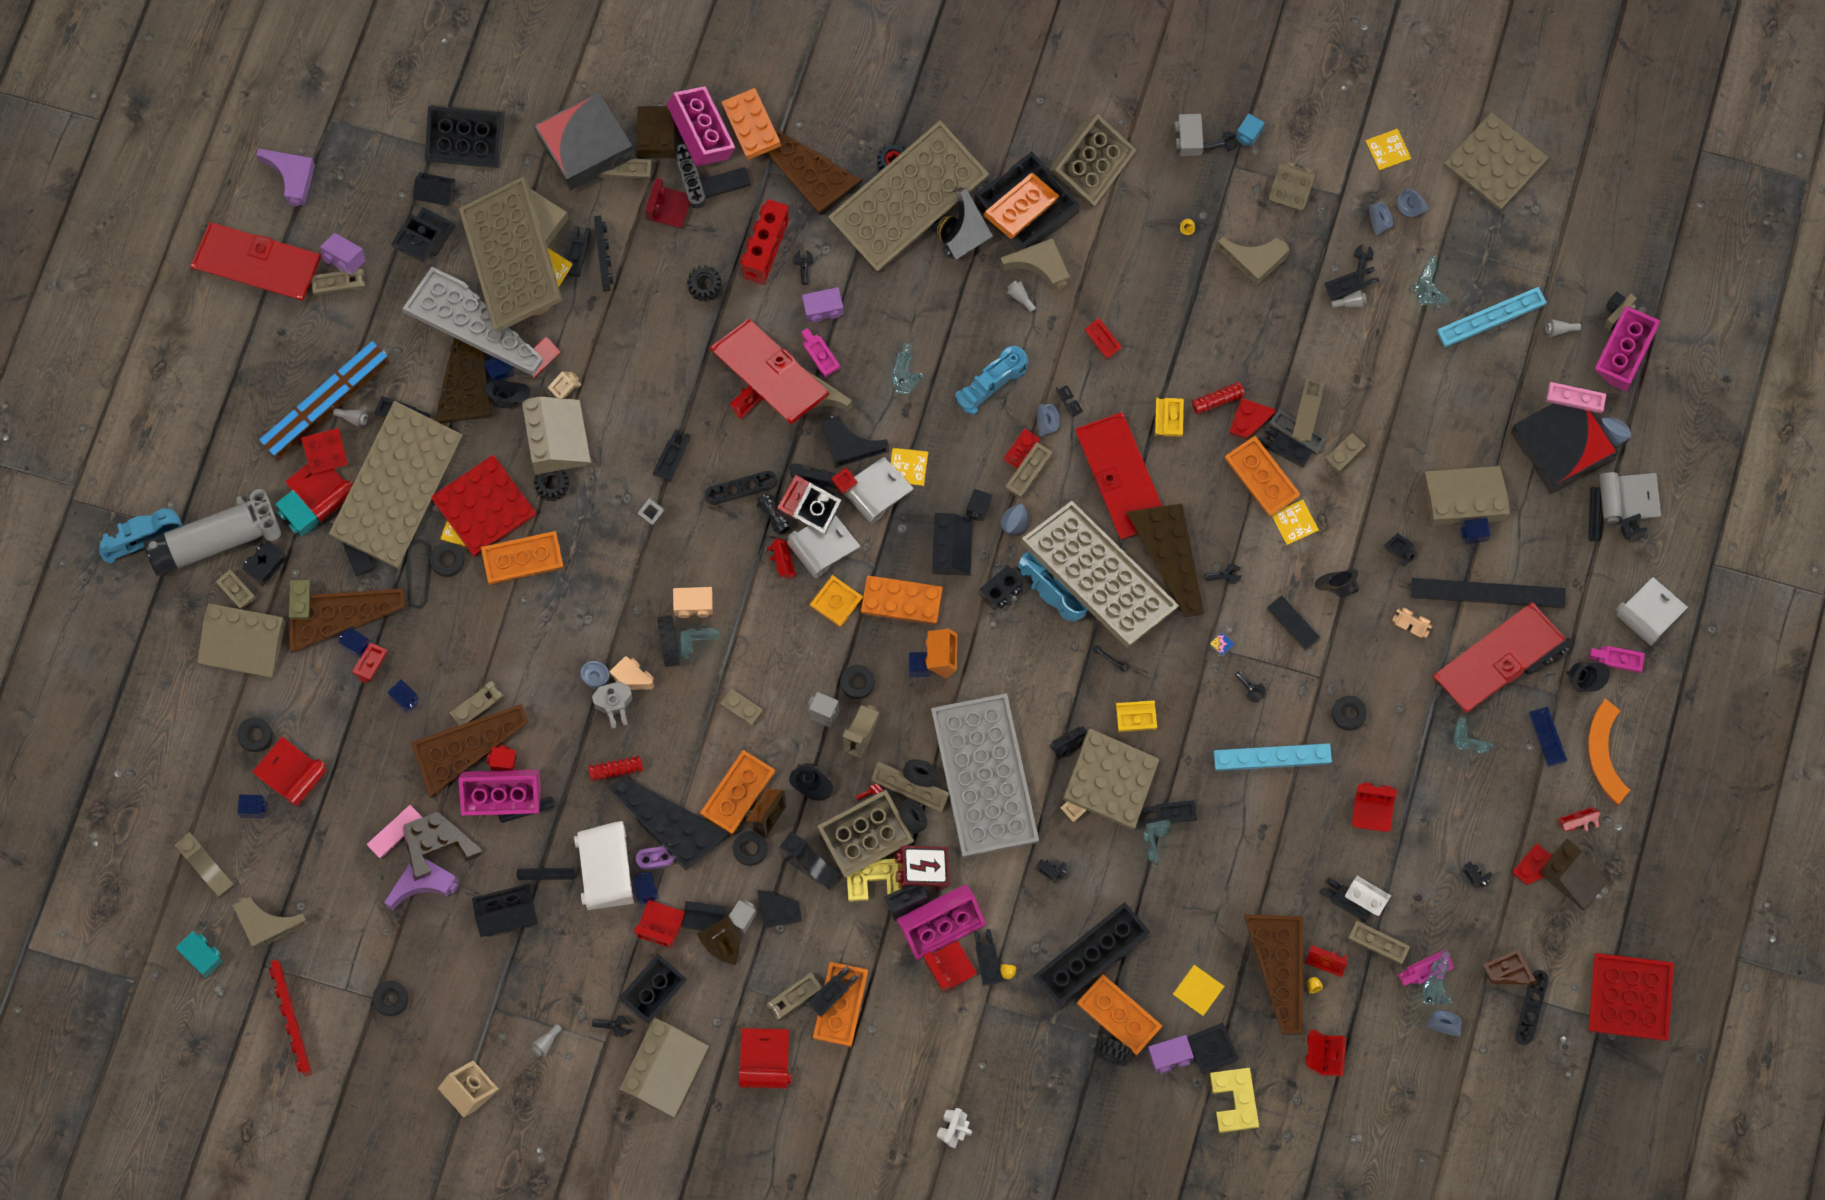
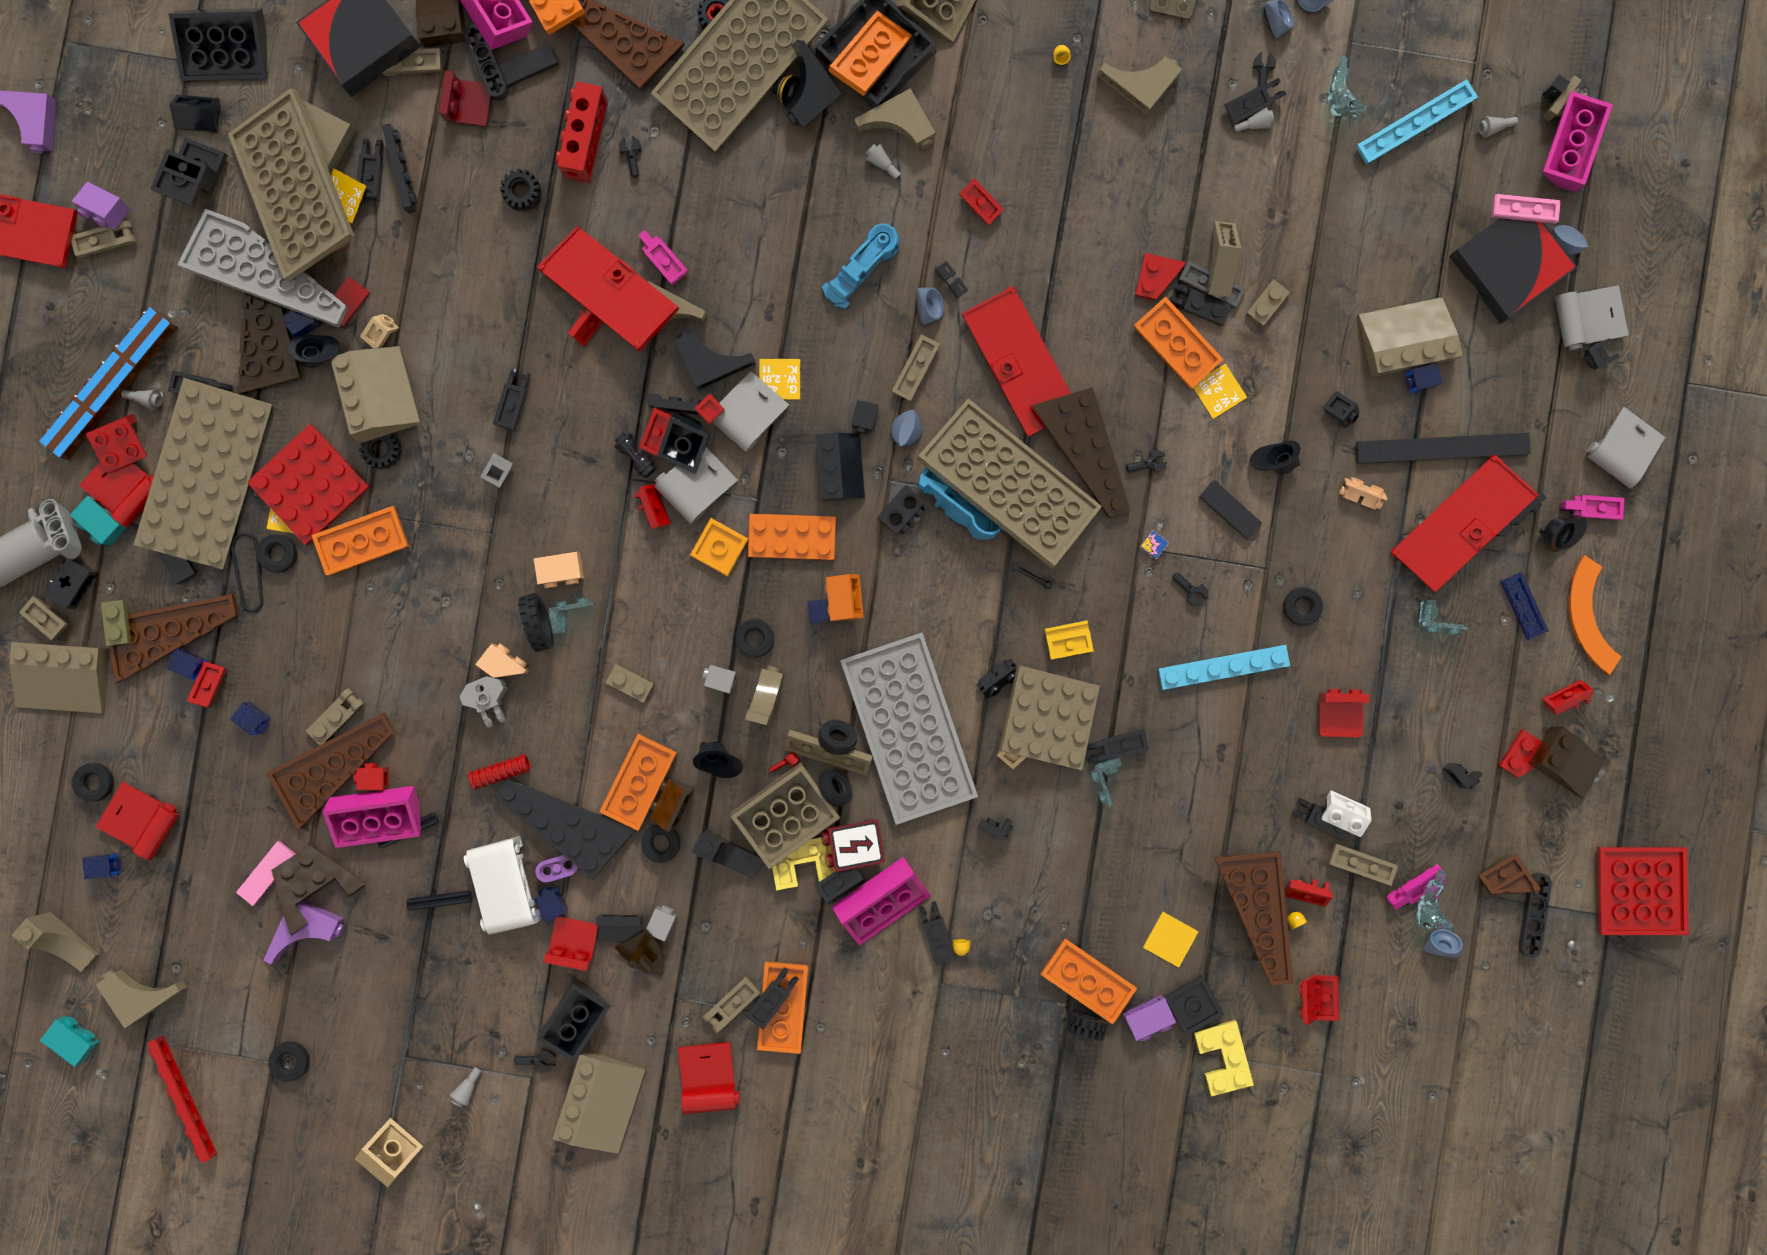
camera: 10 degrees left, 15 degrees up
(504, 910) = (399, 948): black slope -> none
(594, 674) = (460, 668): sand blue piece -> none
(740, 485) = (596, 431): black beam -> none
(778, 910) = (700, 909): black wing -> none
(823, 305) = (658, 200): medium lavender brick -> none
(901, 378) = (759, 278): clear light blue animal -> none
(949, 966) = (896, 950): red bracket -> none
(957, 1129) = (927, 1132): white hips -> none
(1021, 448) = (904, 343): red plate -> none
(1091, 956) = (1051, 922): black brick -> none
(1169, 417) = (1066, 285): yellow plate -> none
(1218, 398) = (1118, 256): red piece -> none
(1594, 514) = (1553, 342): black axle -> none

